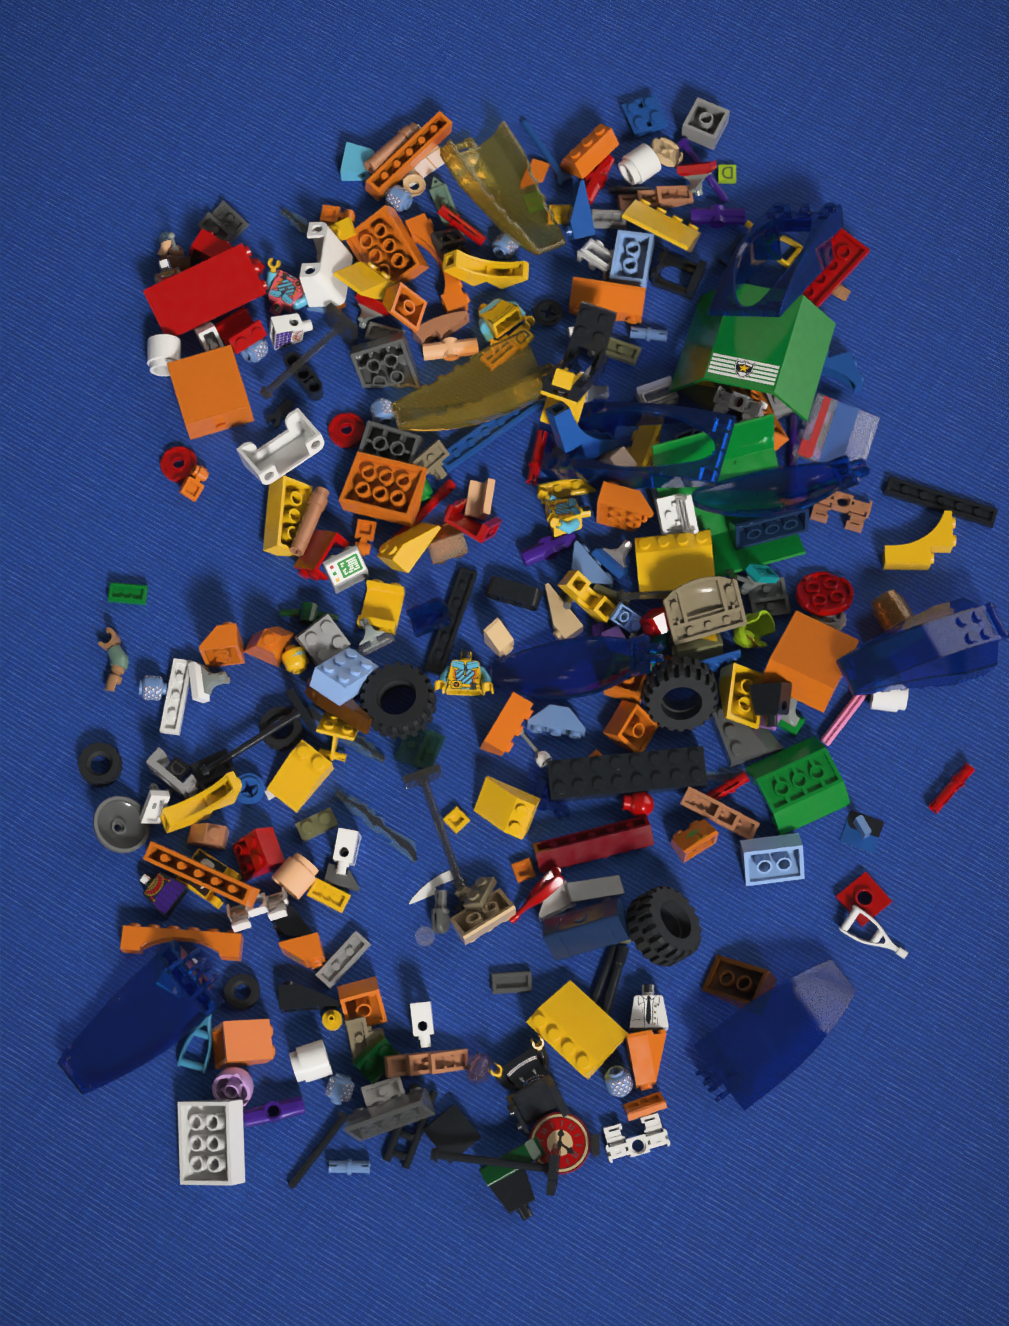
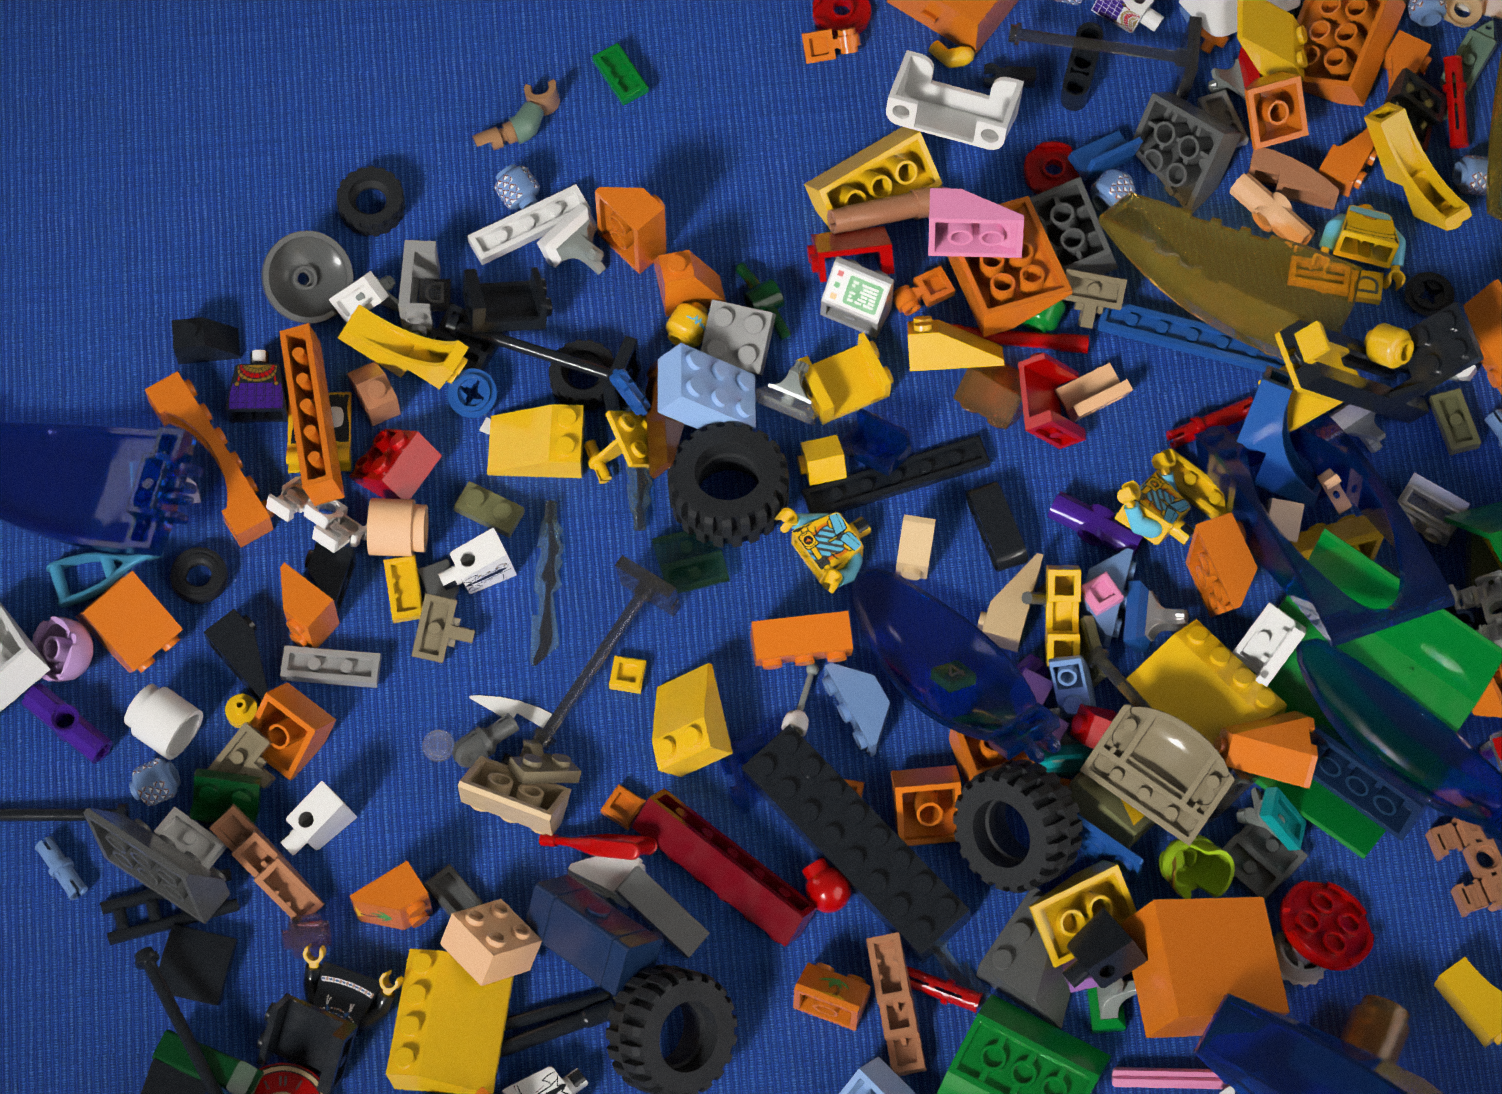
camera: 50 degrees right, 5 degrees down
(113, 901) = (204, 341): none -> black slope
(214, 737) = (506, 304): none -> black panel
(248, 432) = (952, 57): none -> yellow arm
(317, 711) = (630, 391): none -> blue axle
(358, 488) = (972, 226): none -> bright pink slope
(359, 402) = (1103, 155): none -> blue panel
(364, 893) = (438, 628): none -> dark tan hinge
(418, 648) = (822, 460): none -> yellow brick
(495, 1011) = (393, 900): none -> orange slope
(552, 980) = (491, 942): none -> light nougat brick
(575, 349) = (1389, 345): none -> yellow head
(579, 668) = (953, 676): none -> tile
(590, 570) = (1101, 593): none -> bright pink tile
(613, 427) = (1330, 483): none -> light nougat piece
(730, 551) = (1272, 747): none -> orange slope

